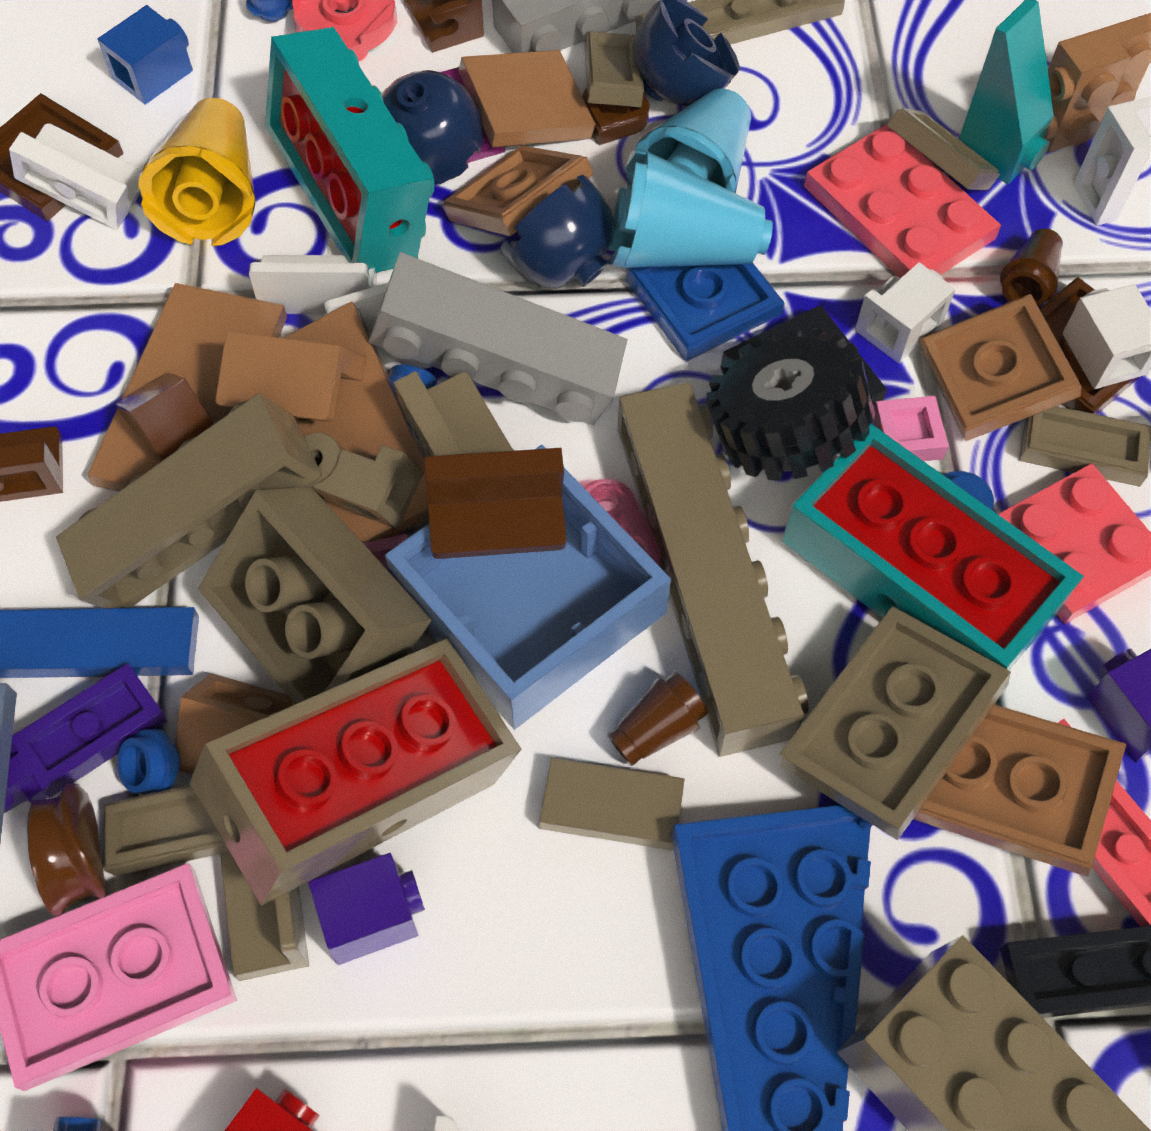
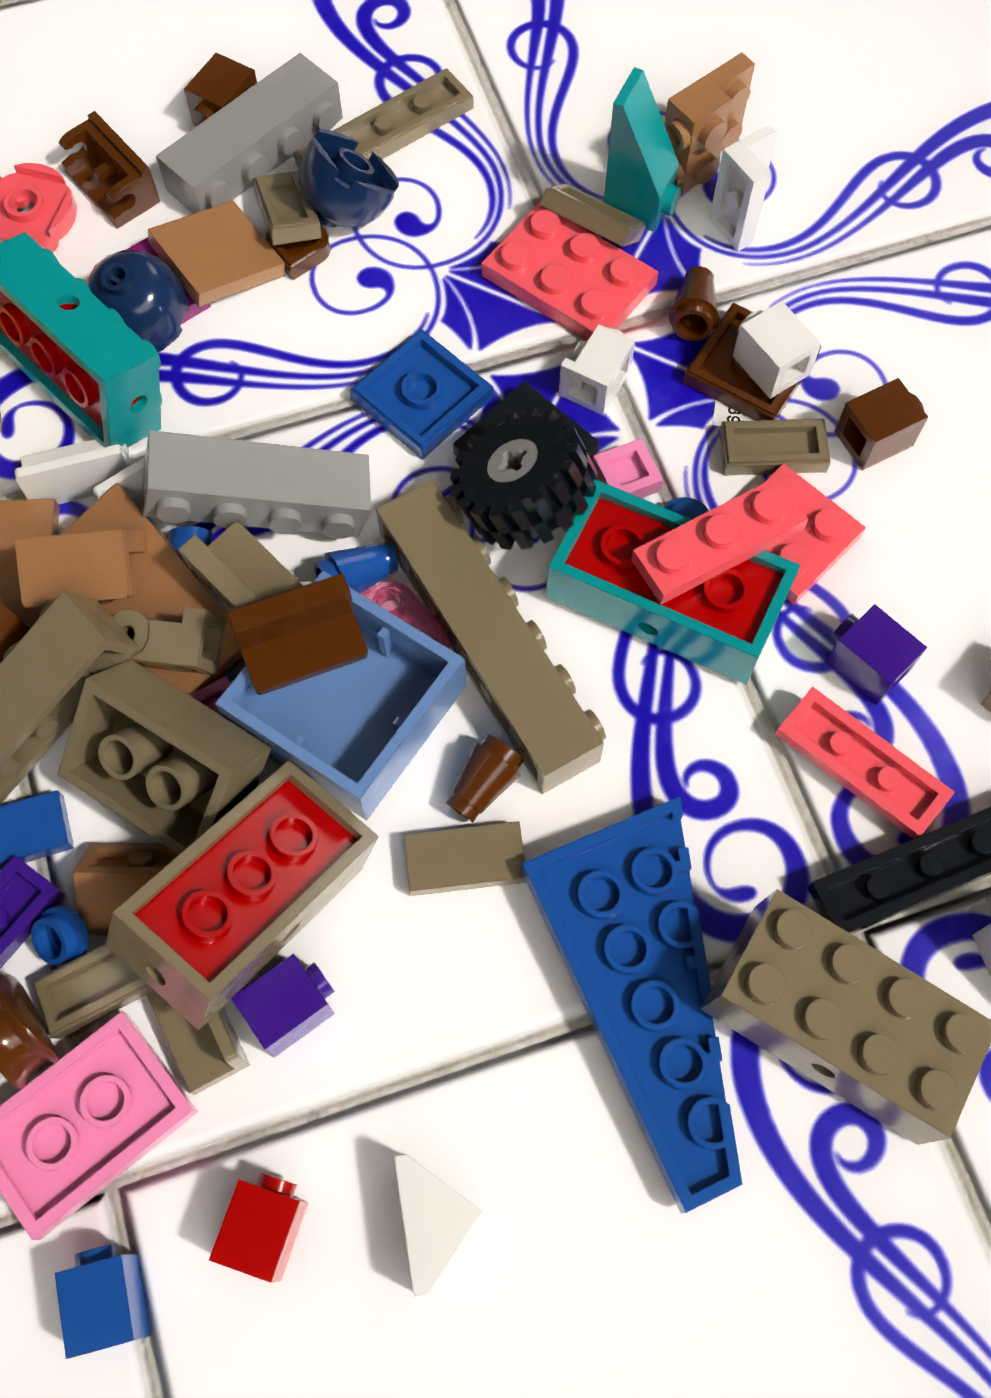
camera: 15 degrees left, 5 degrees up
(513, 188) = (232, 341): medium nougat tile -> none
(563, 237) = (287, 376): dark blue cylinder -> none
(588, 455) = (360, 565): none -> blue cone
(683, 219) = (386, 335): medium azure cone -> none
(704, 138) = (381, 278): medium azure cone -> none
(894, 721) = (678, 727): dark tan plate -> none
(995, 523) = (718, 540): none -> coral plate
(999, 367) = (687, 399): medium nougat tile -> none
(1029, 789) = (748, 747): medium nougat tile -> none

